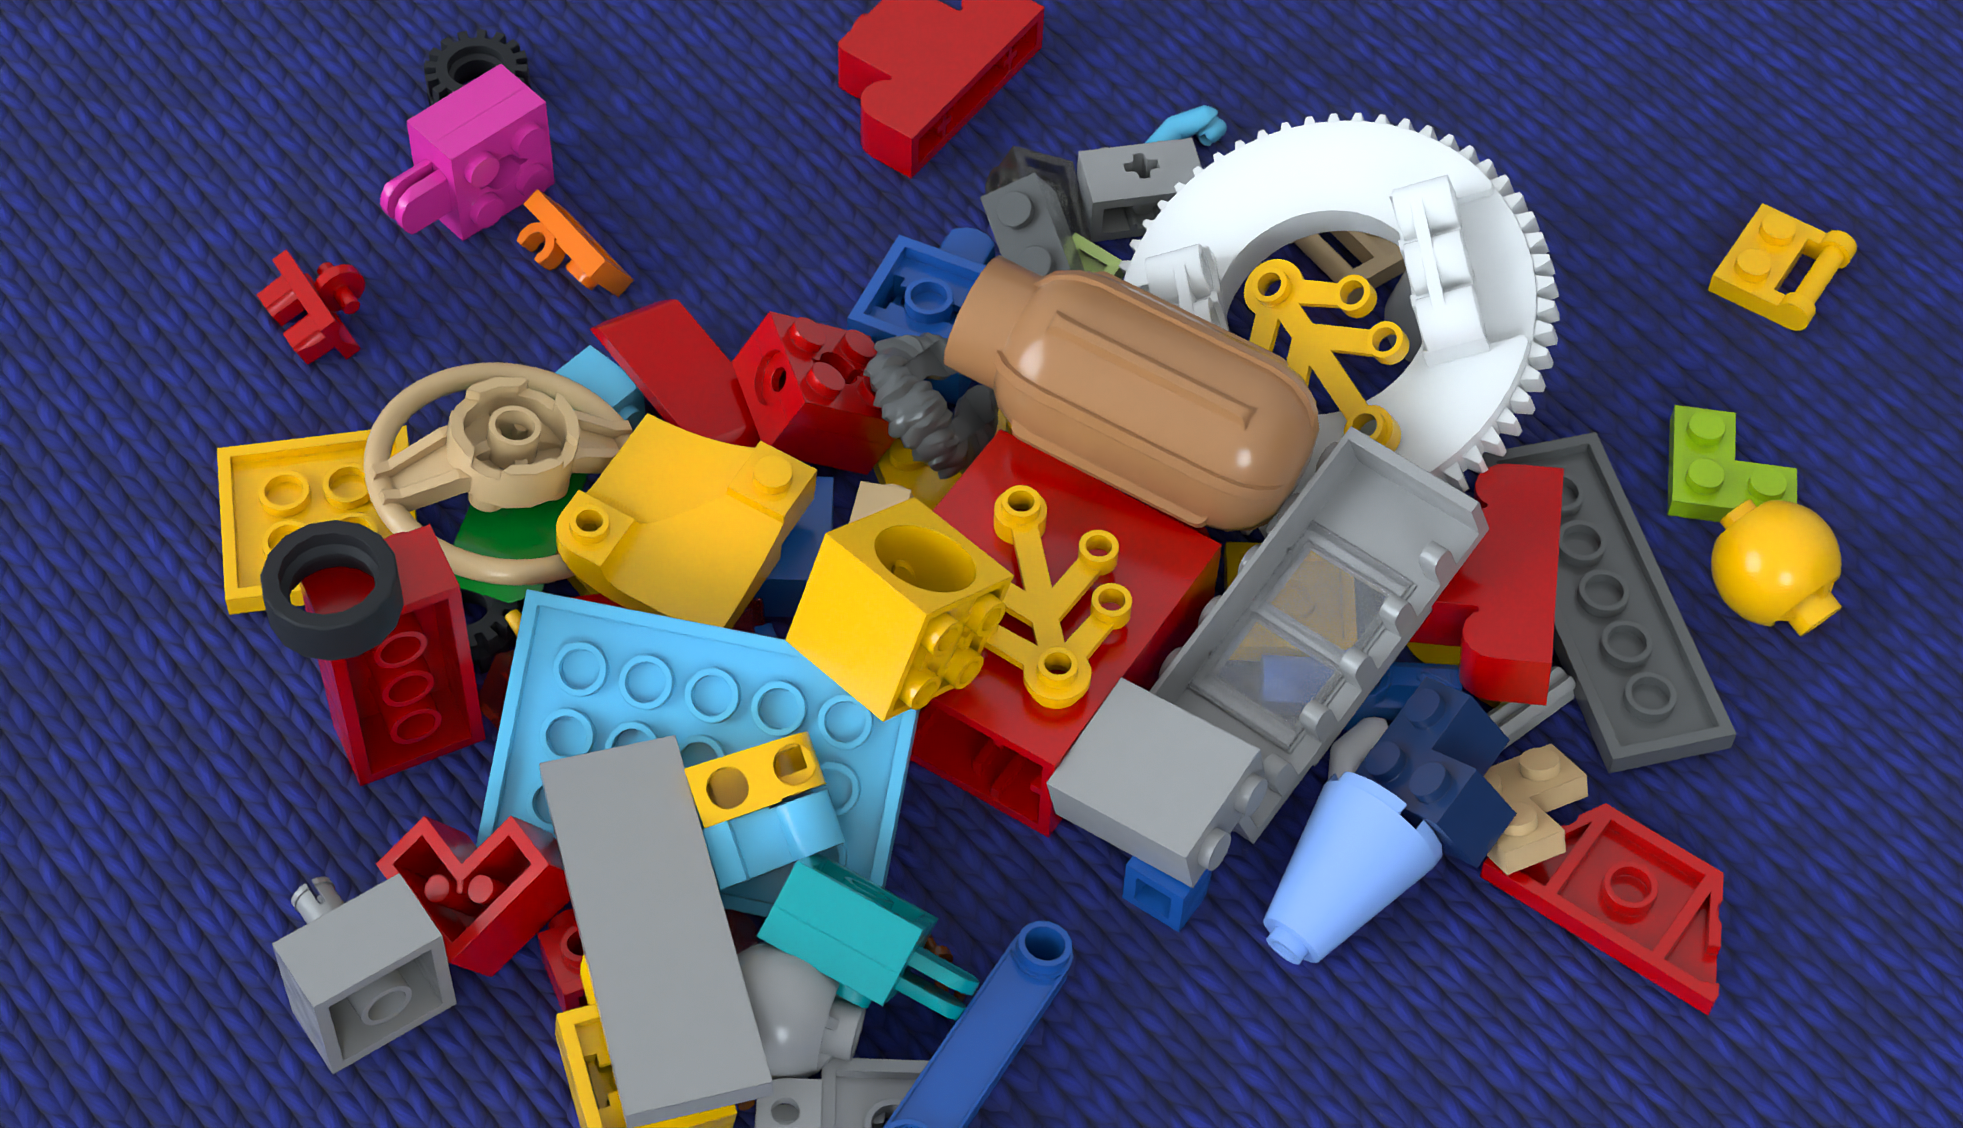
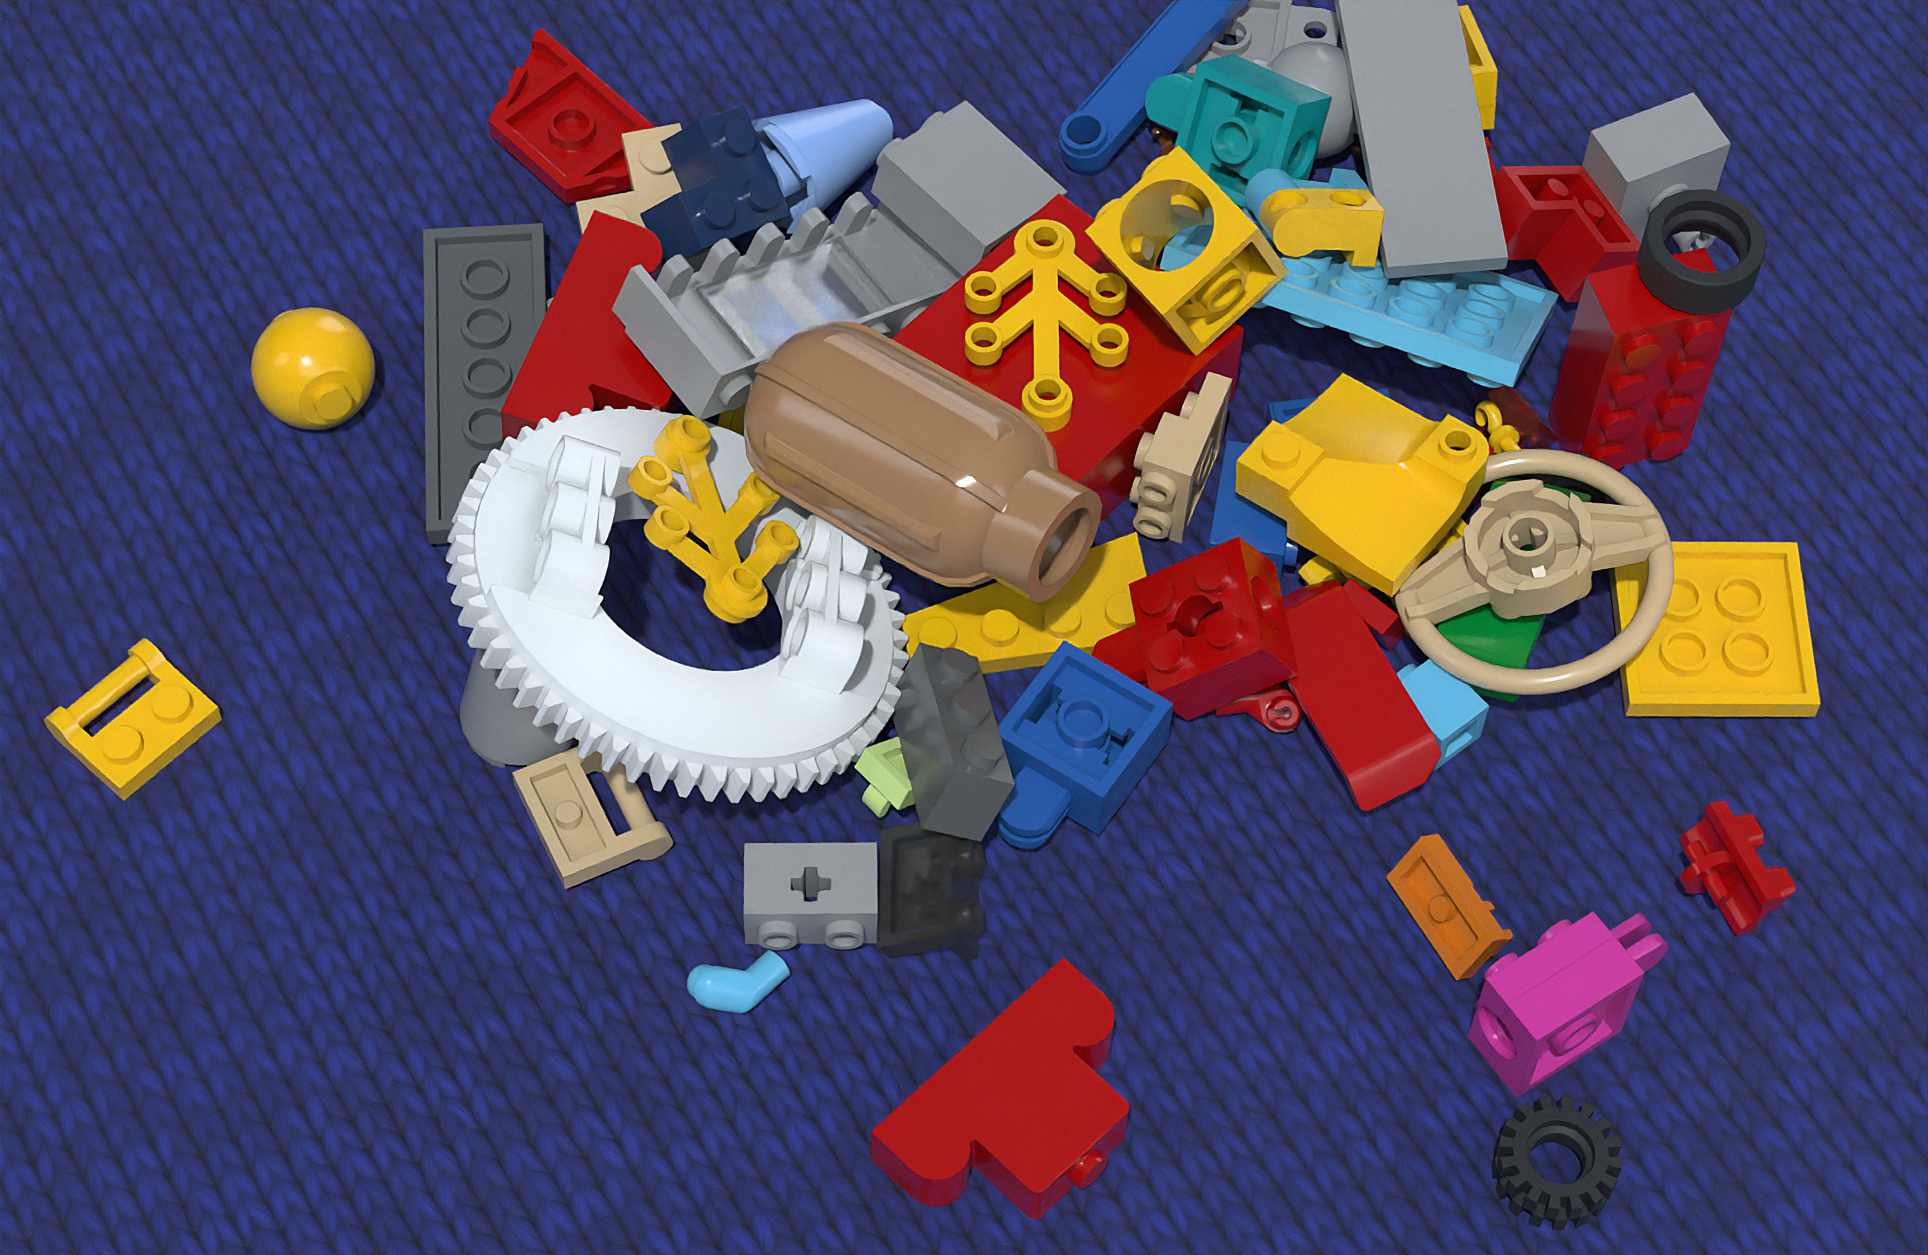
camera: 170 degrees left, 5 degrees up
(920, 413) = (1139, 584): dark grey piece -> none
(1703, 470) = (322, 493): lime plate -> none

